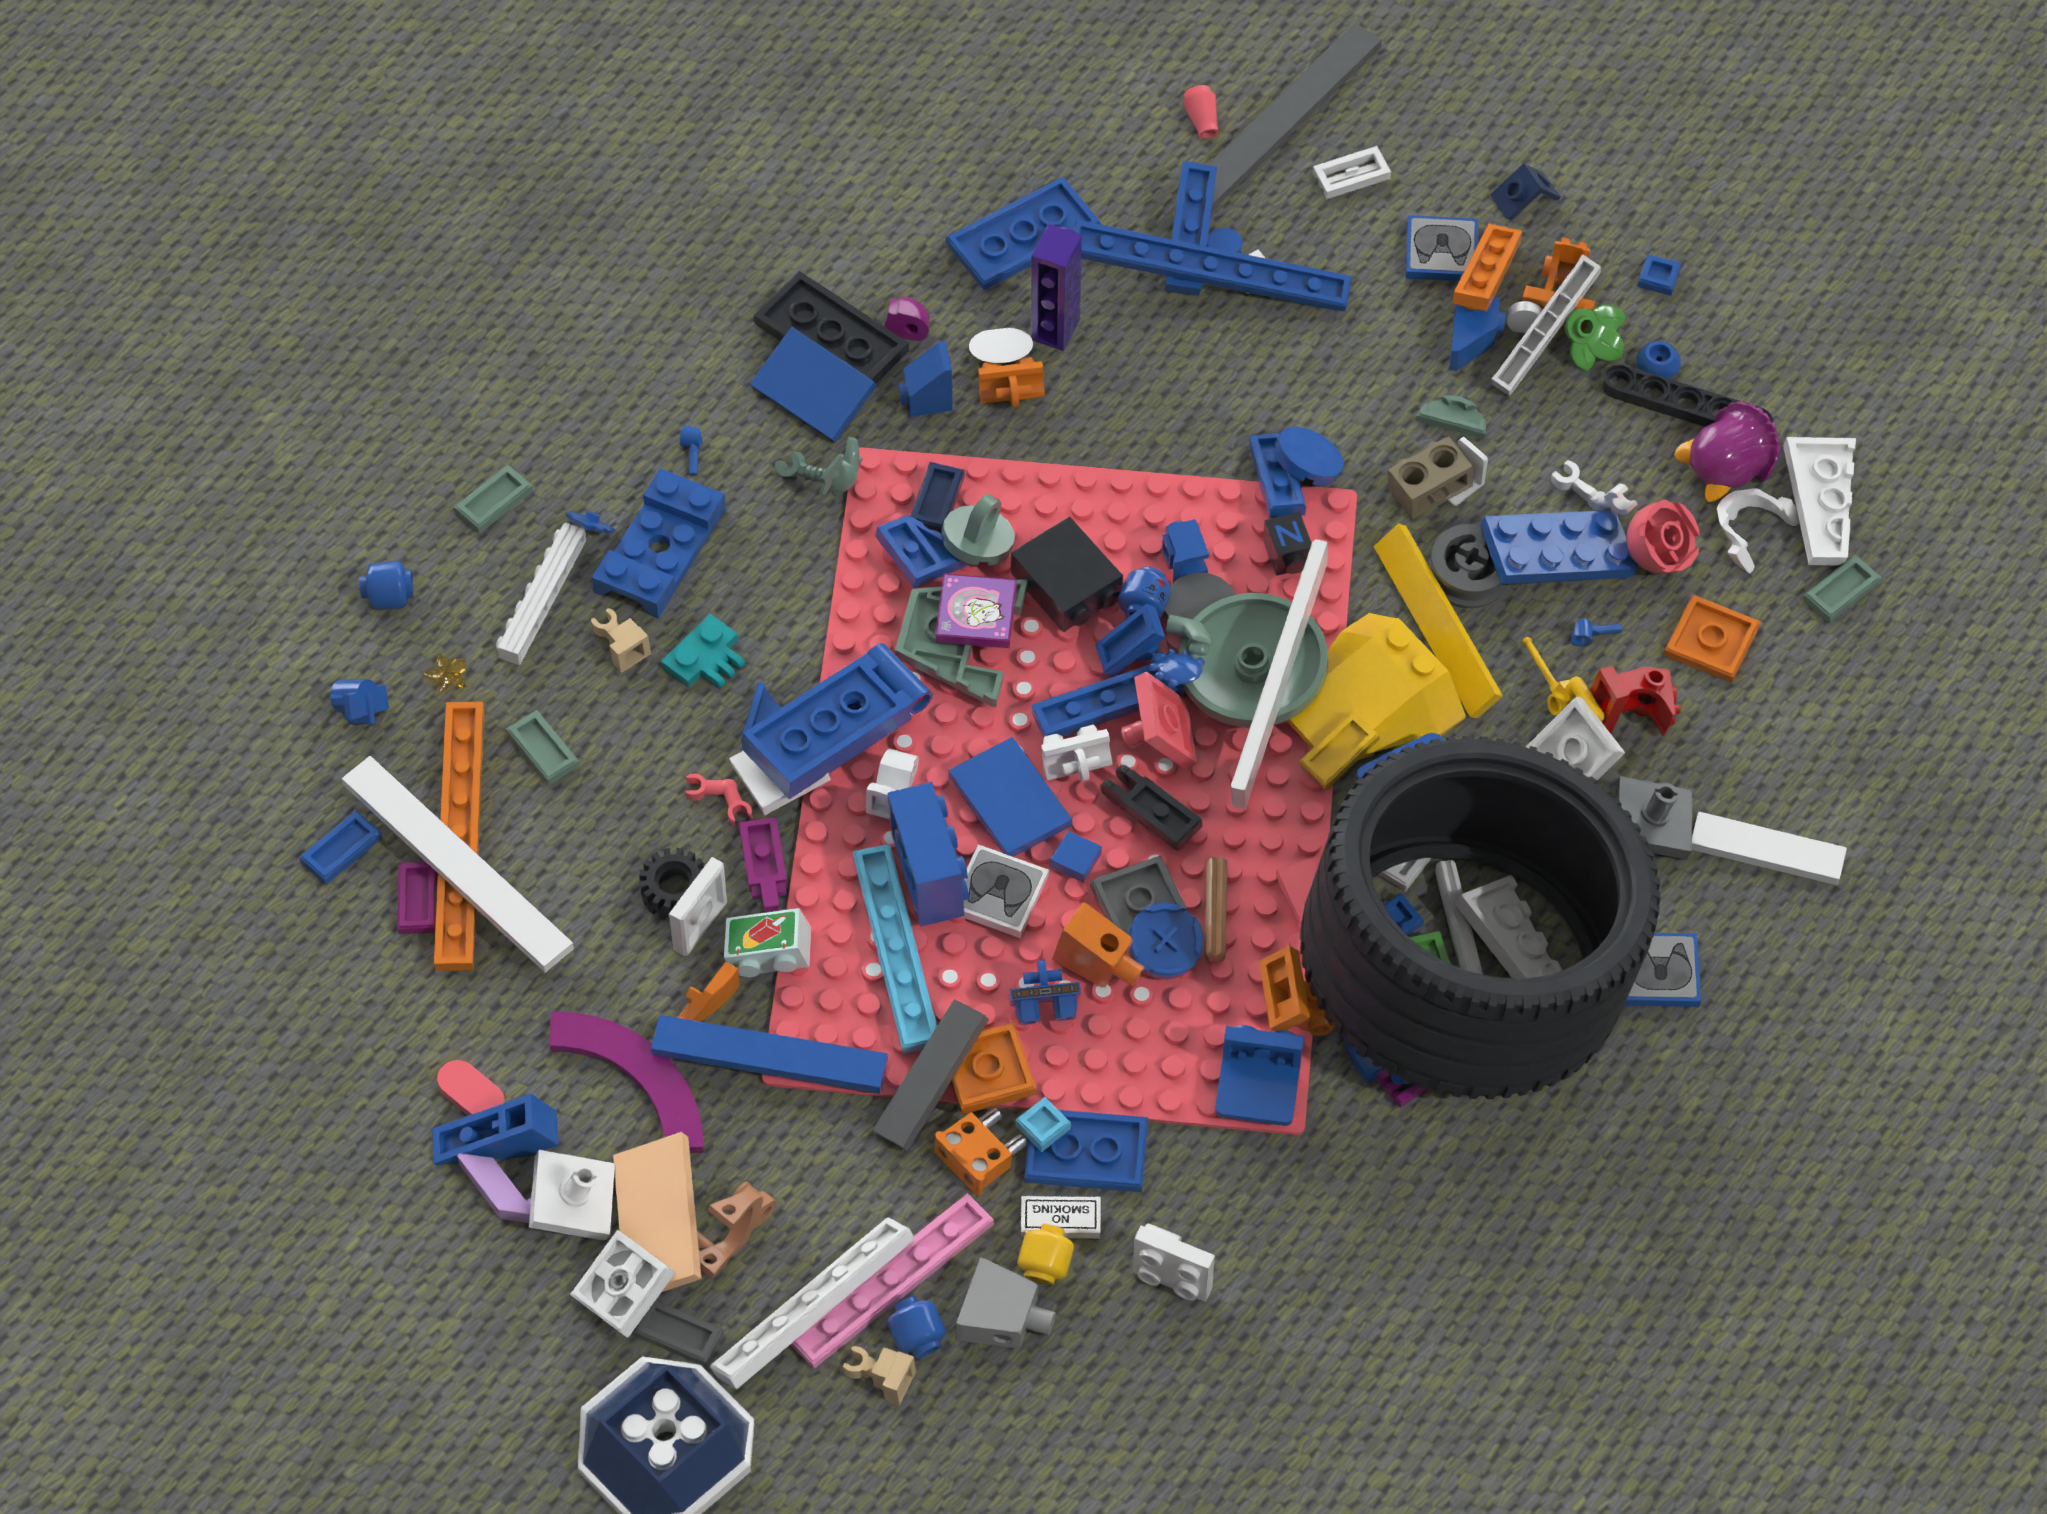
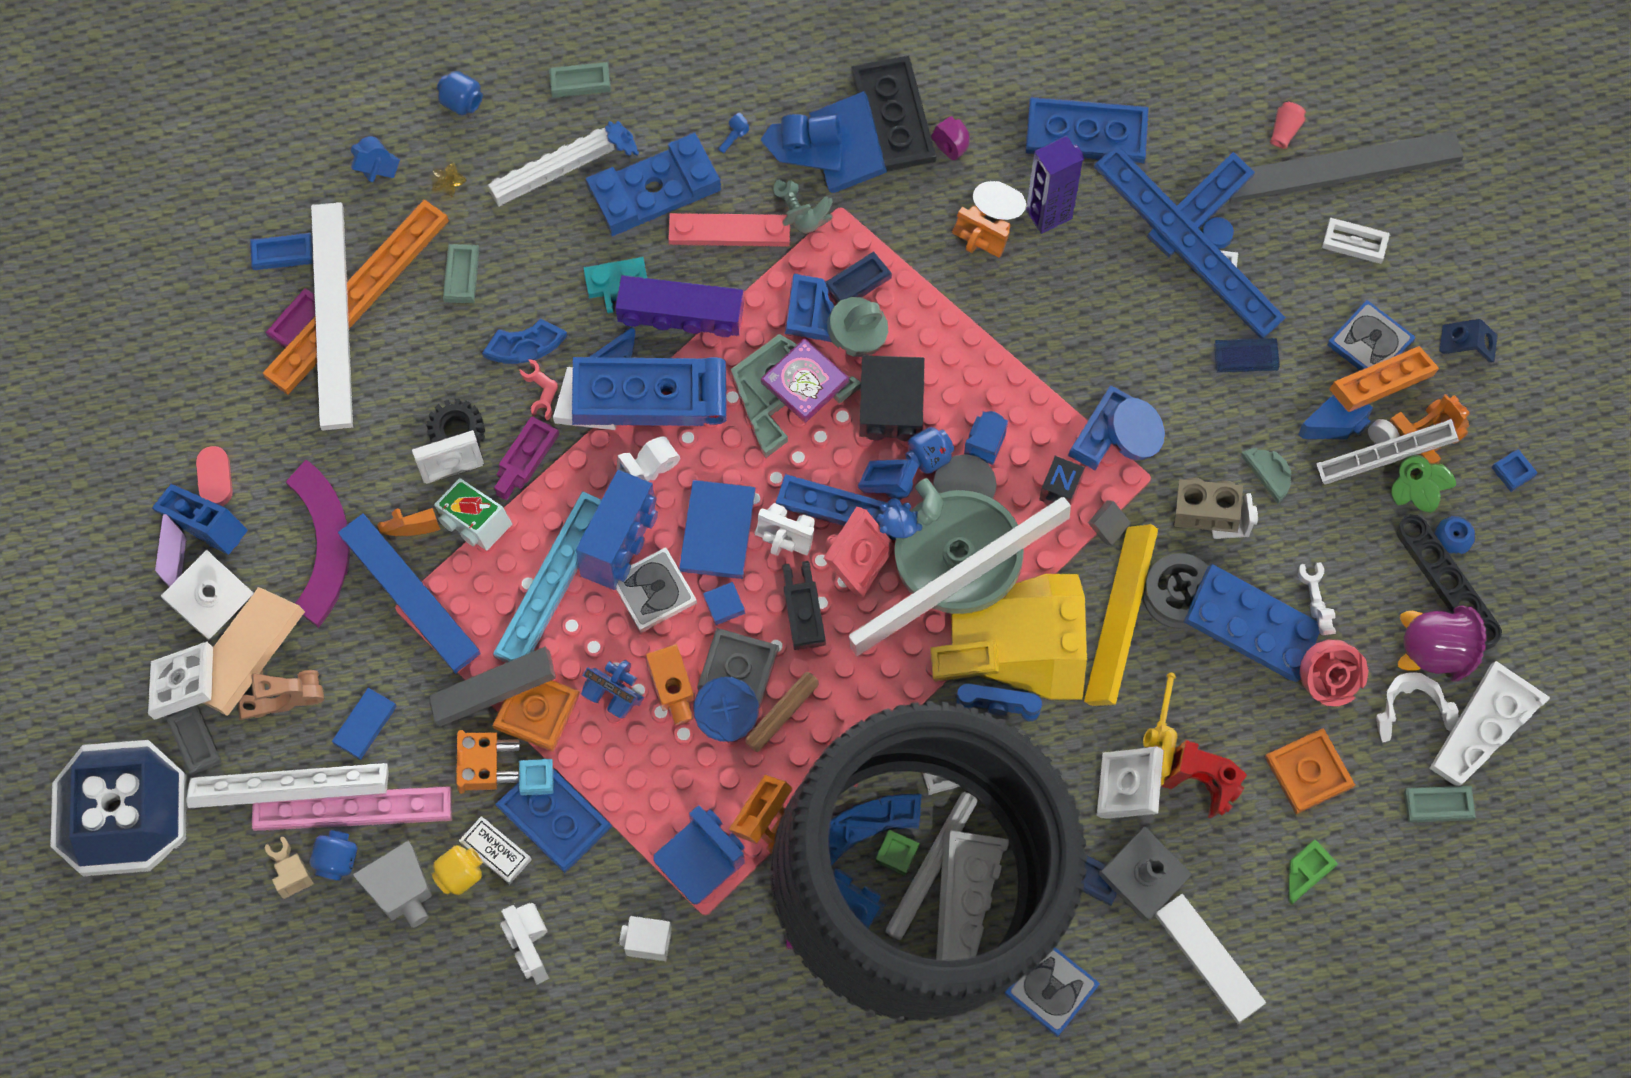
camera: 40 degrees right, 10 degrees up
(627, 641) = (572, 240): tan piece -> none
(667, 769) = (525, 344): none -> blue tile
(768, 537) = (728, 230): none -> coral plate
(772, 409) = (806, 141): none -> blue panel
(793, 628) = (680, 306): none -> dark purple brick
(832, 1200) = (364, 724): none -> blue tile
(928, 382) = (921, 194): blue slope -> none
(1273, 1184) = (646, 938): none -> white brick
(1344, 332) = (1246, 355): none -> clear blue tile
(1356, 551) = (1109, 522): none -> dark grey tile
(1584, 630) = (1221, 697): blue hand -> none
(1783, 718) = (1308, 869): none -> bright green tile

